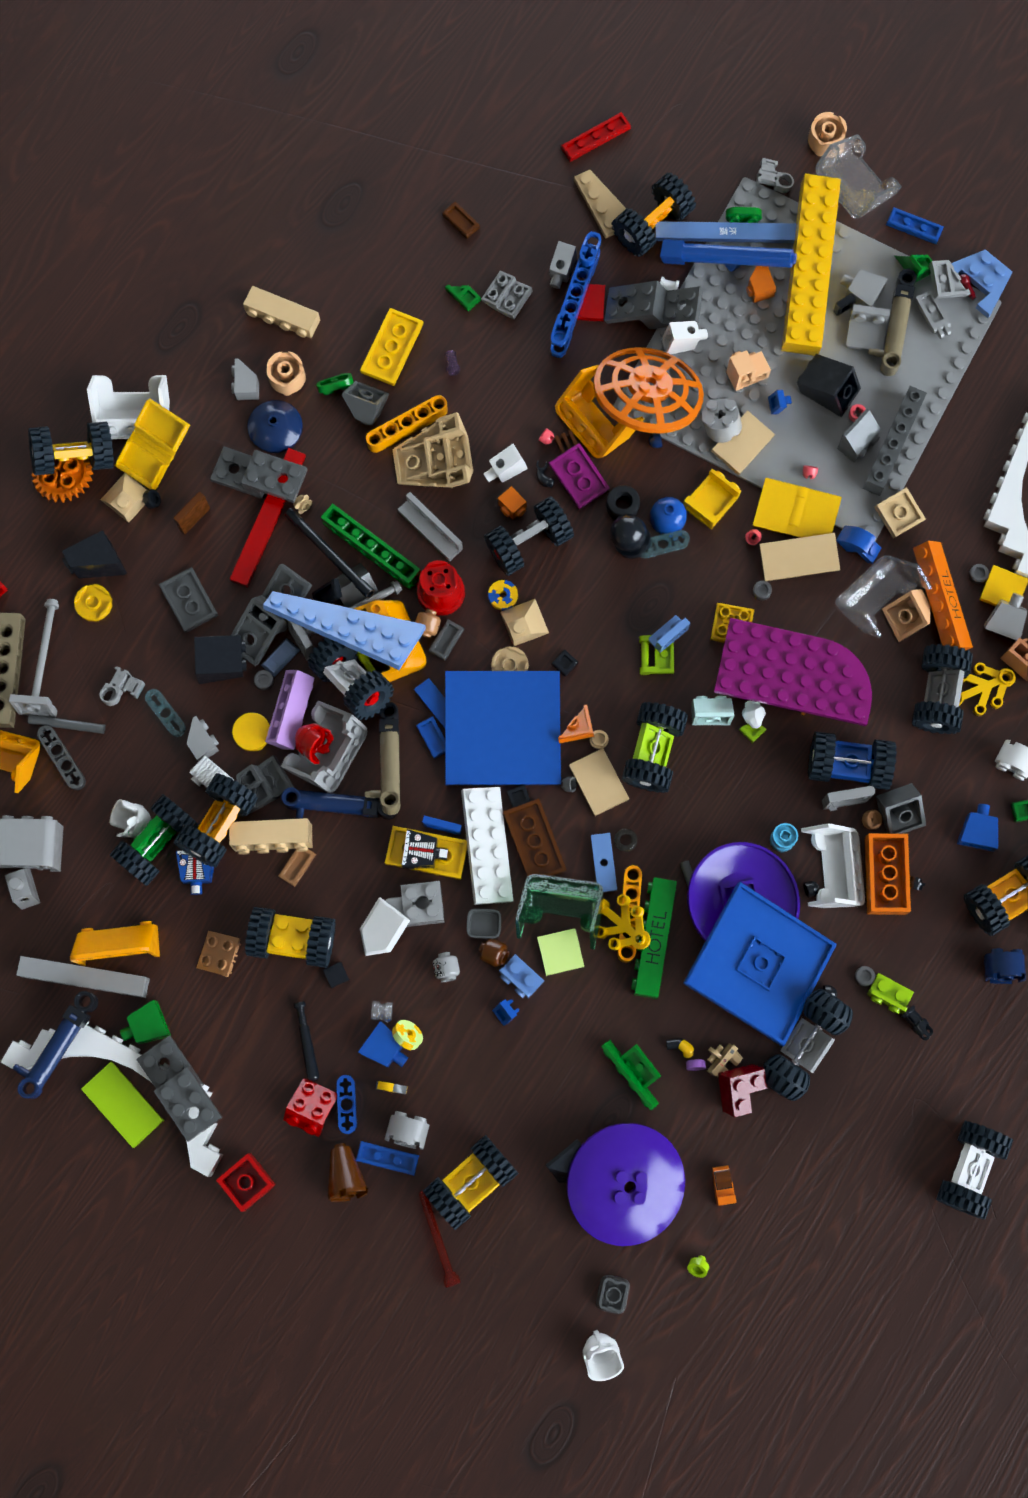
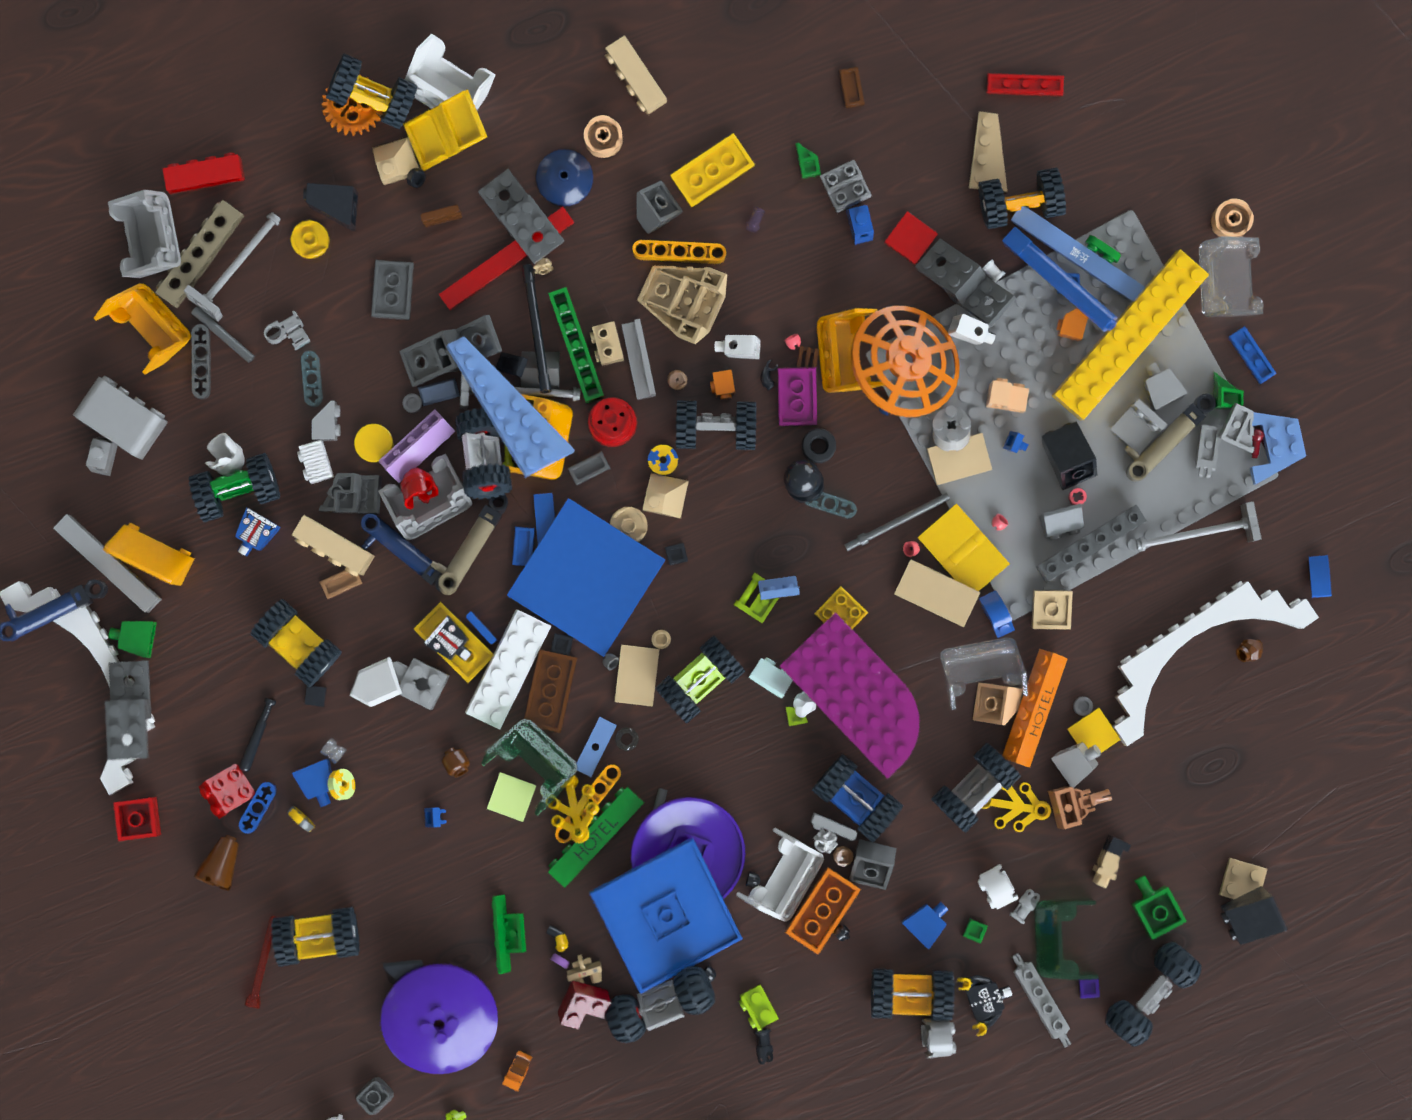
camera: 30 degrees right, 10 degrees up
(122, 1104) = (77, 689): lime tile -> none
(218, 953) = (230, 615): medium nougat hinge -> none
(219, 658) = (385, 363): black slope -> none
(229, 801) = (293, 507): black plate -> none
(245, 382) = (563, 122): light grey slope -> none
(334, 383) = (640, 172): green plate -> none
(387, 1158) = (263, 872): blue tile -> none
(395, 530) = (607, 343): none -> tan brick
(407, 1131) = (291, 863): light grey brick -> none
(430, 620) = (582, 444): medium nougat head -> none
(446, 967) = (408, 749): light grey head -> none
(472, 524) = (677, 379): none -> medium nougat tile
(484, 923) = (462, 733): dark grey piece -> none
(521, 977) = (465, 796): medium blue bracket -> none
(536, 311) = (860, 224): none -> blue torso
(562, 264) = (918, 189): light grey torso -> none
(566, 321) = (924, 208): blue piece -> none
(578, 728) = (649, 619): orange tile -> none
(668, 515) = (851, 481): blue cylinder -> none
(709, 554) = (863, 539): none -> dark grey bar
(712, 498) = (899, 491): yellow panel -> none
(762, 590) = (887, 600): flat silver tile -> none
(768, 176) = (1152, 227): light grey piece -> none
(783, 837) = (758, 824): medium azure wheel -> none
(843, 305) = (1133, 390): black tile -> none
(849, 815) = (825, 841): none -> white gear
(864, 976) = (748, 979): flat silver tile -> none
(1004, 966) = (865, 1048): dark blue brick -> none
(1005, 345) = (1248, 522): none -> light grey tile

